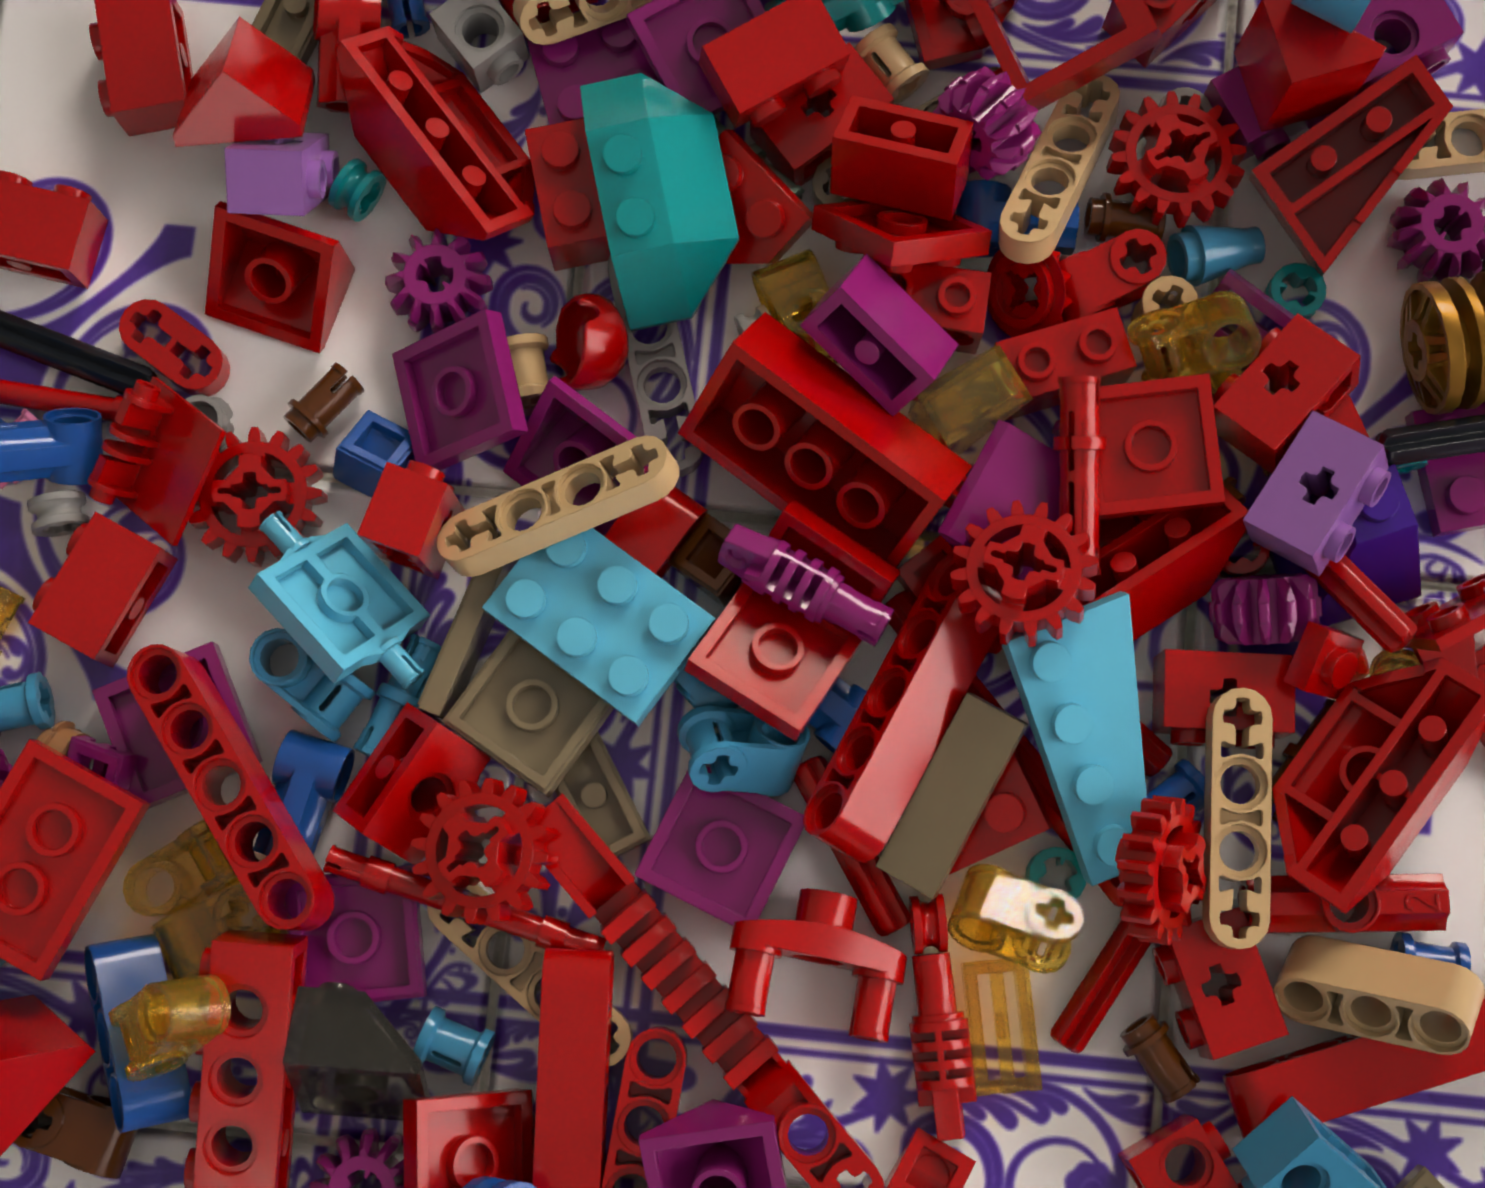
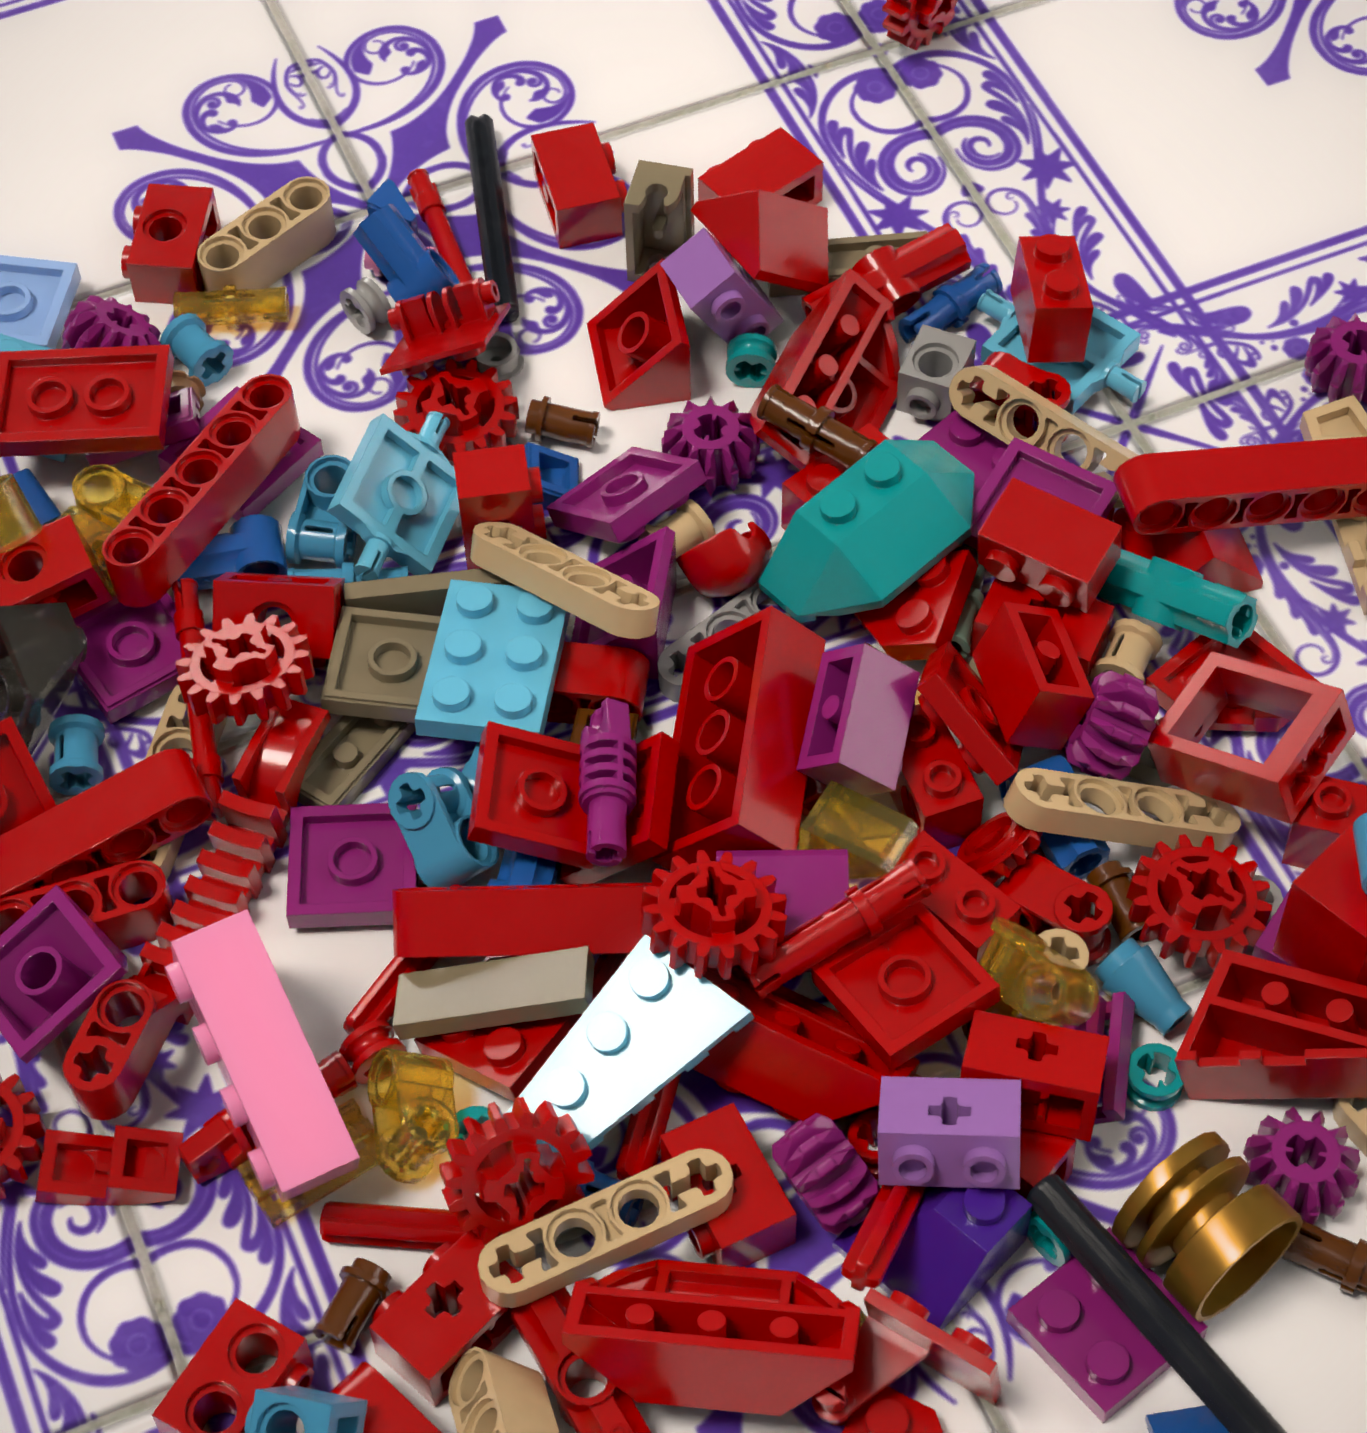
camera: 60 degrees right, 25 degrees down
(101, 589) = (324, 356): red brick -> none
(141, 177) = (657, 214): none -> dark tan hinge
(183, 337) = (555, 317): red beam -> none
(527, 183) = (814, 427): none -> reddish brown pin
(825, 937) = (312, 961): red connector -> none
(921, 1035) = (262, 1056): none -> bright pink wedge
(1326, 661) = (807, 1239): red plate -> none

